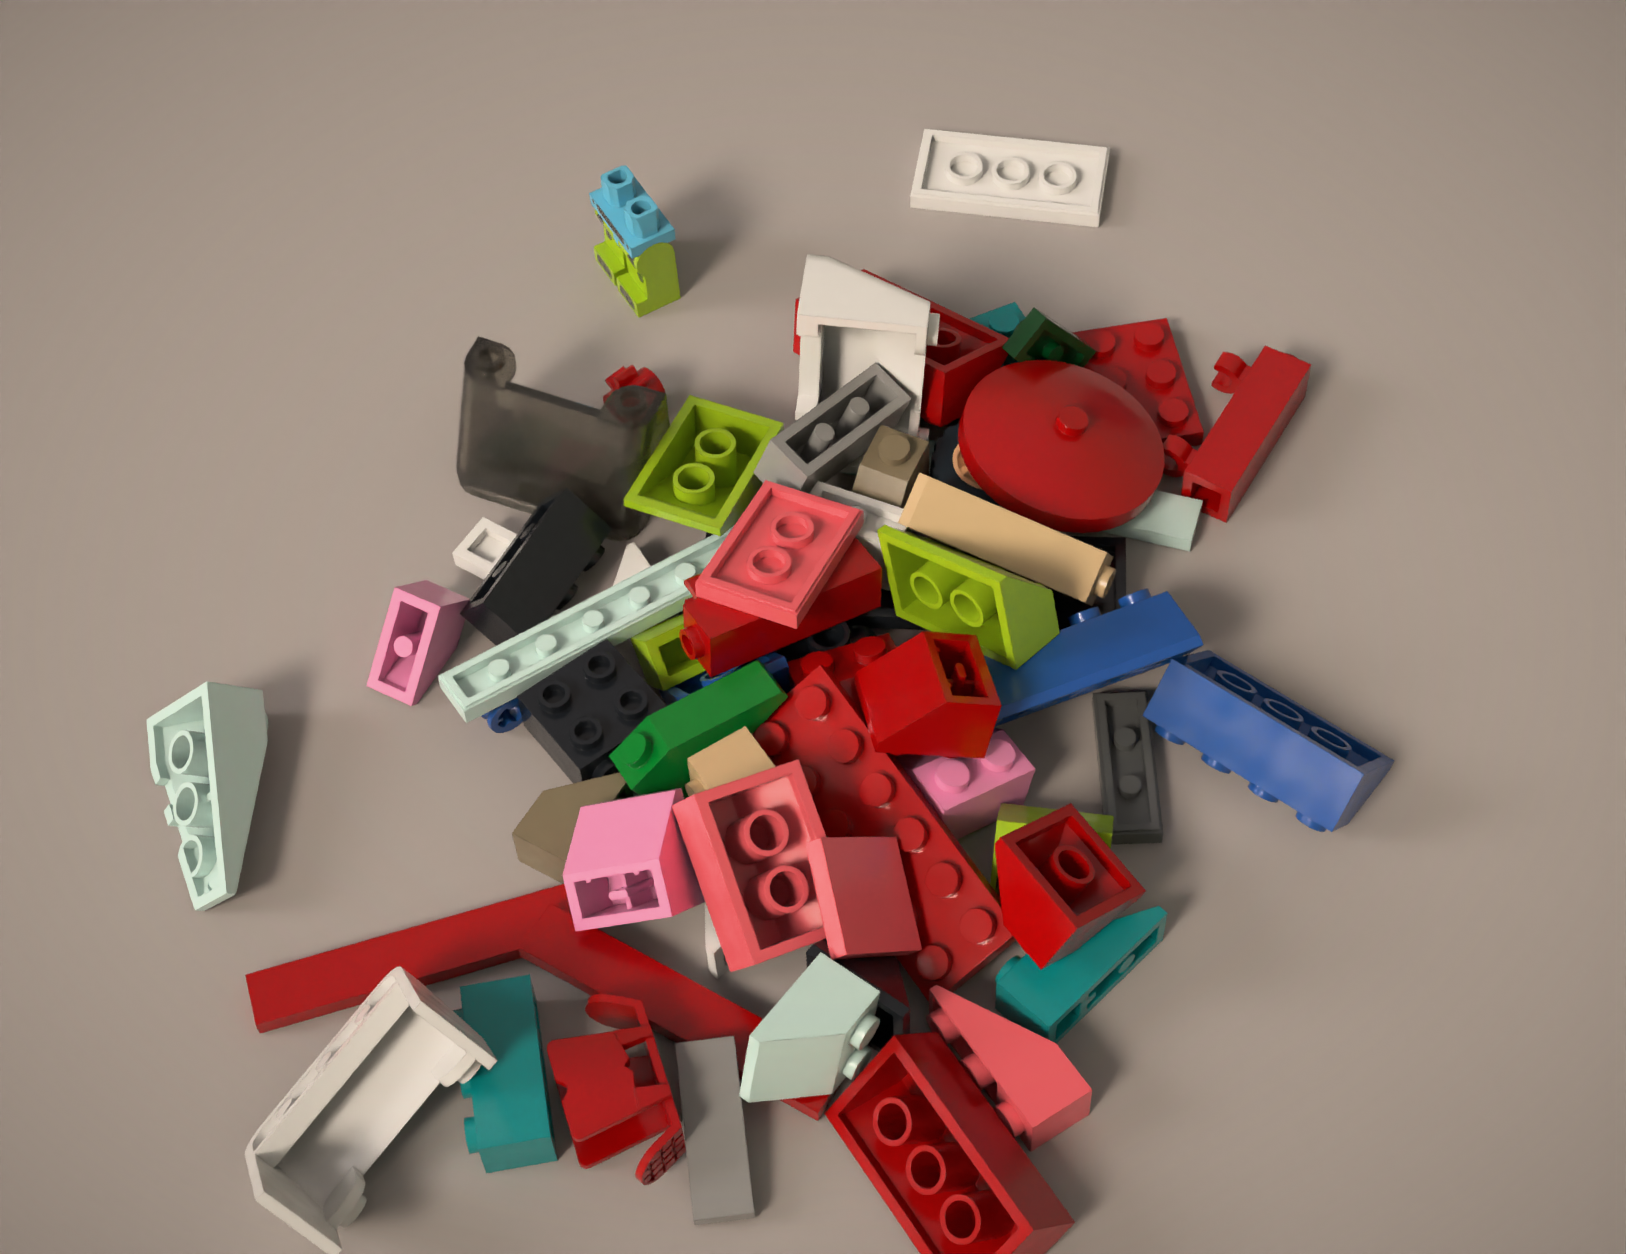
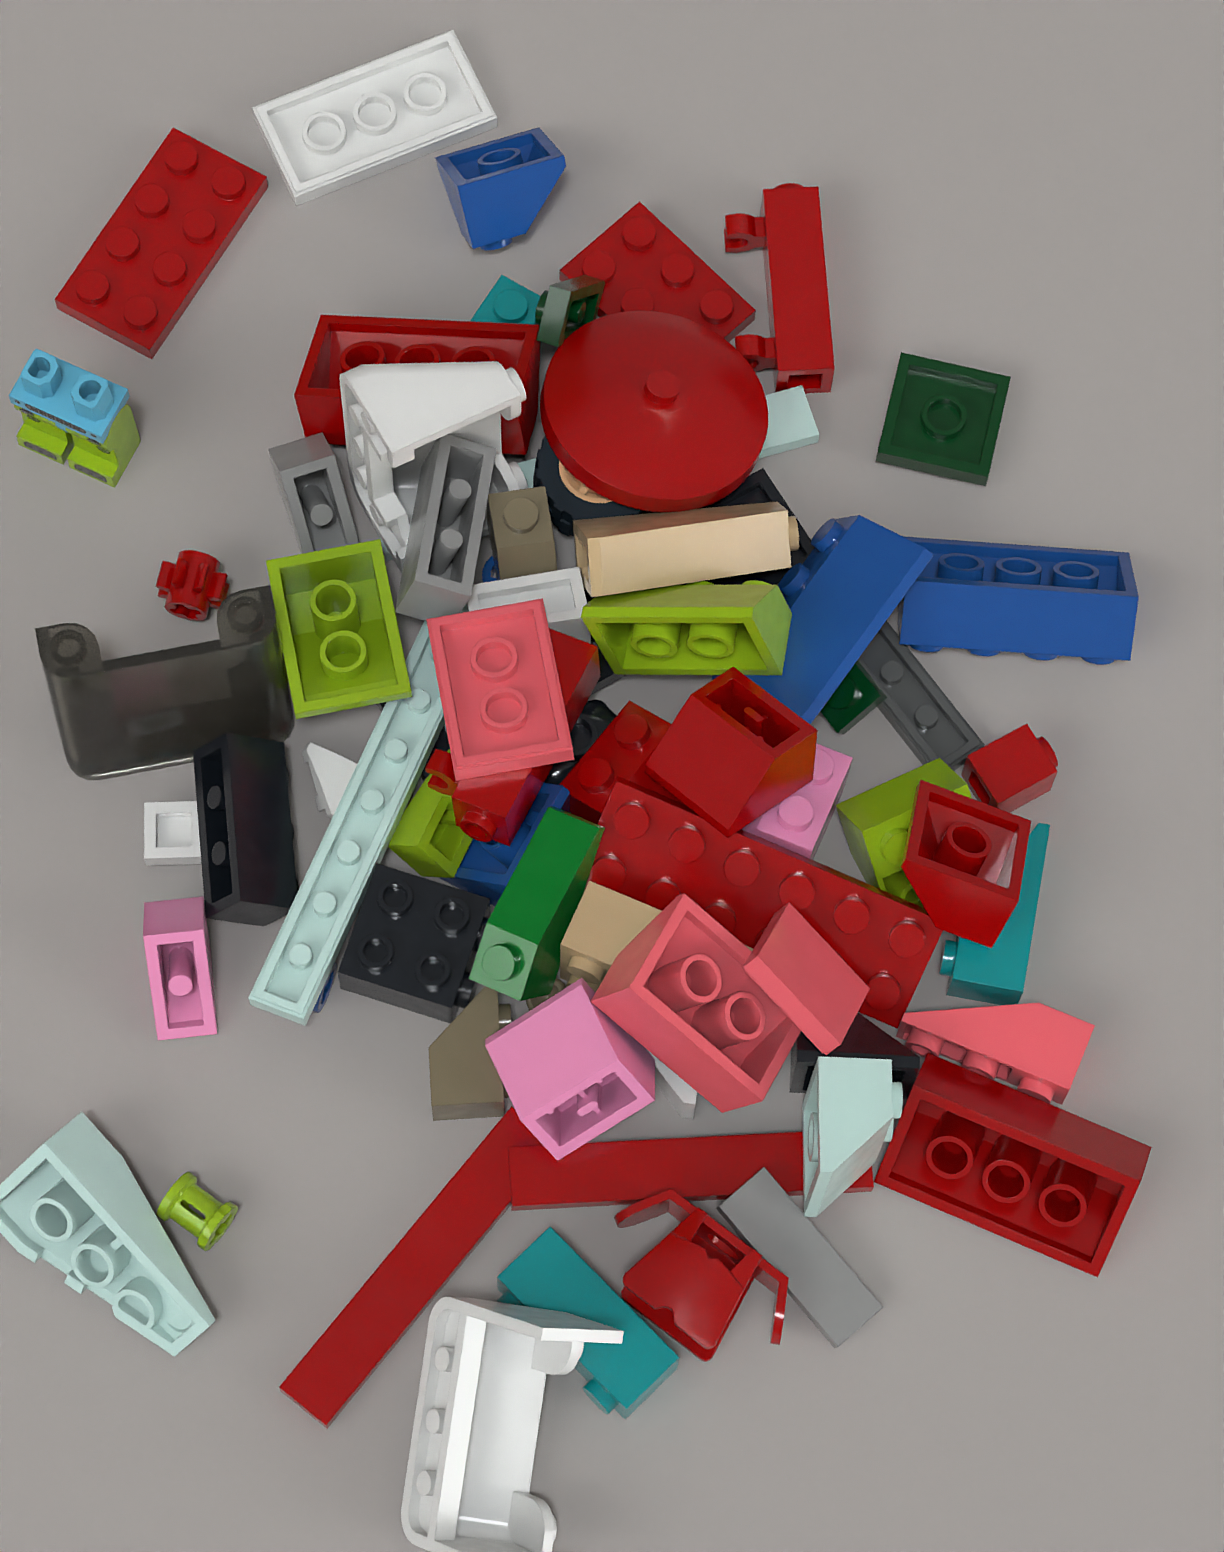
camera: 40 degrees left, 15 degrees up
(291, 813) = (176, 1207): none -> lime bush
(768, 378) = (313, 494): none -> light grey slope
(794, 182) = (161, 243): none -> red plate
(1060, 257) = (500, 185): none -> blue slope
(1074, 731) = (852, 699): none -> dark green plate
(1171, 861) = (1011, 770): none -> red brick
(1302, 581) = (943, 419): none -> dark green plate

